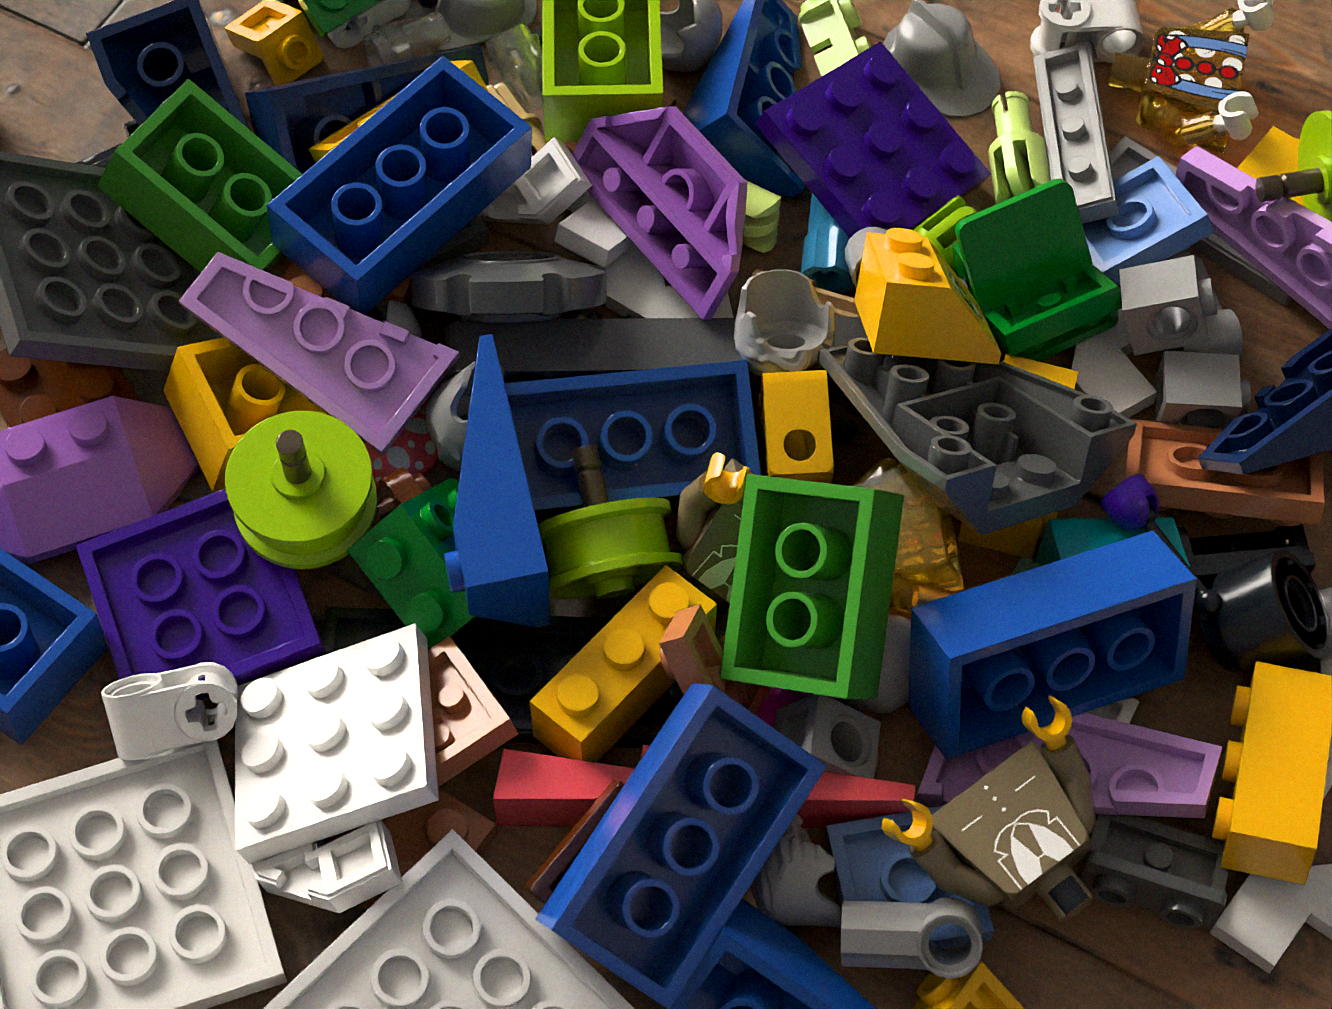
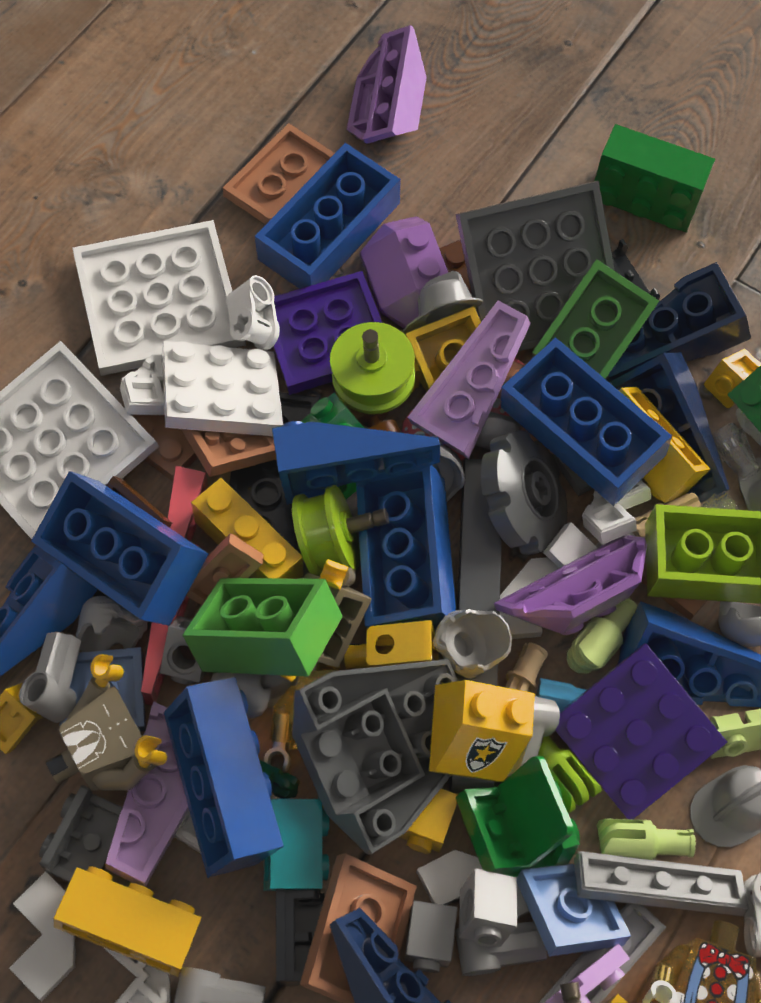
camera: 90 degrees right, 5 degrees up
(161, 404) = (442, 298): none -> light grey piece
(1135, 507) = (319, 854): dark purple hinge -> none
(1267, 615) = (239, 940): black piece -> none

